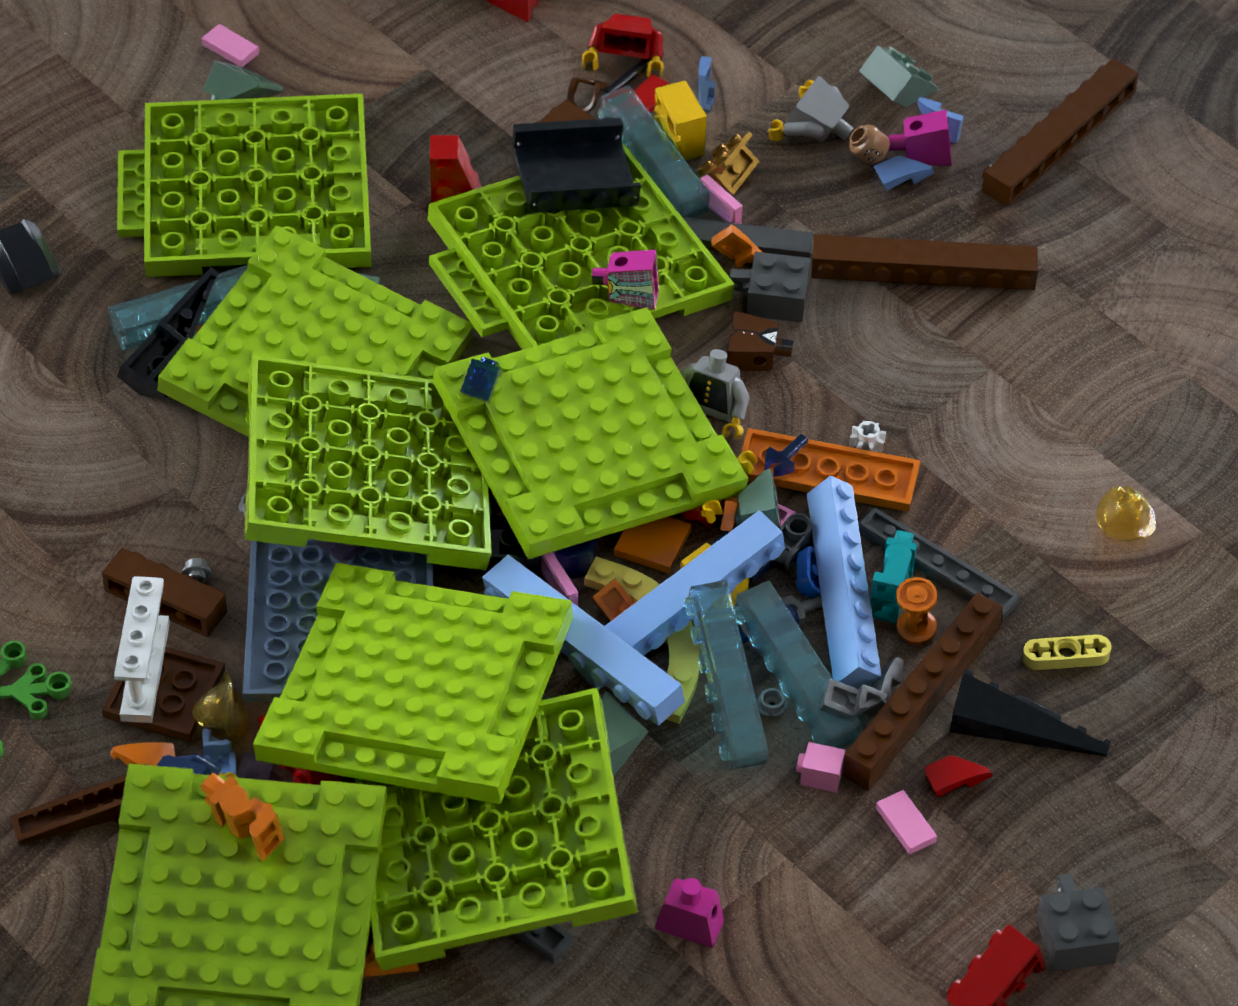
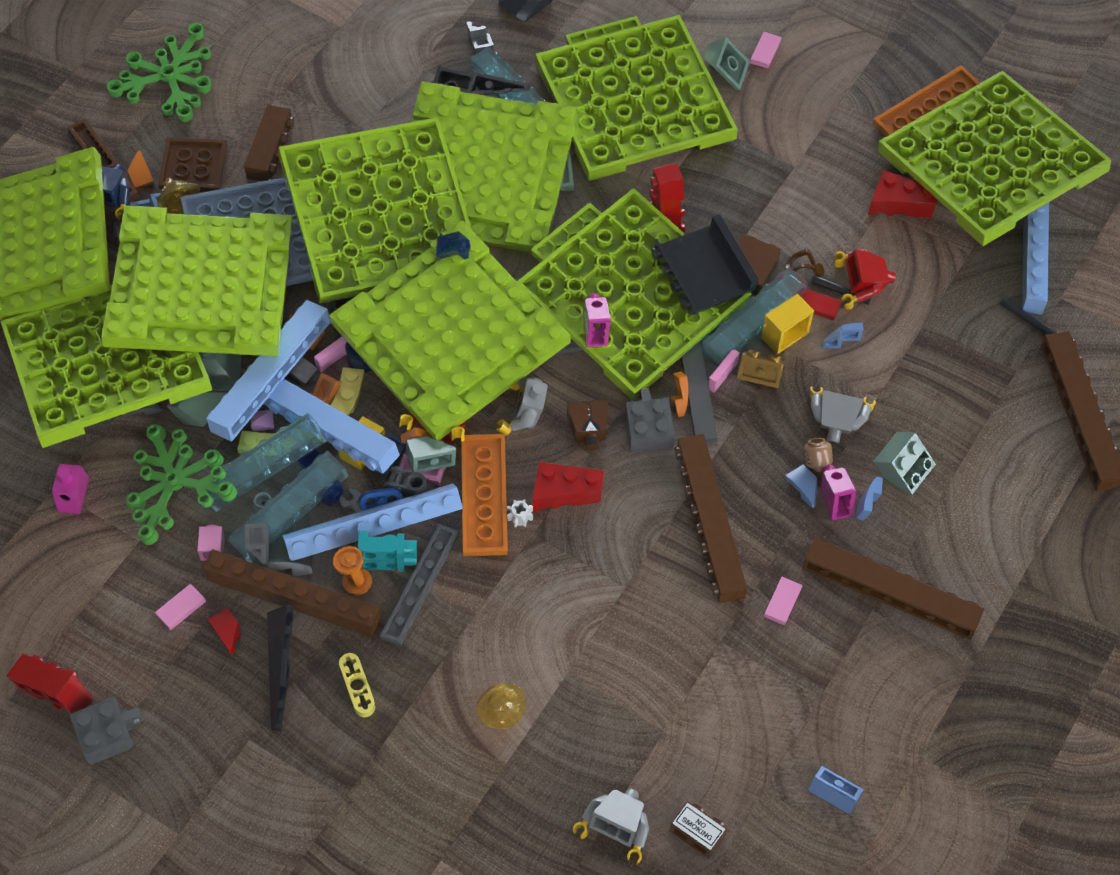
camera: 75 degrees right, 10 degrees up
(74, 326) = (479, 38): none -> flat silver slope
(142, 649) = (200, 147): white fence -> none
(243, 816) = (56, 209): orange hips -> none
(654, 543) = (384, 404): orange tile -> none
(679, 794) = (174, 480): none -> bright green plant
(784, 456) = (480, 460): clear blue bar -> none
(841, 386) = (566, 485): none -> red wedge
(1049, 230) = (783, 601): none -> bright pink tile

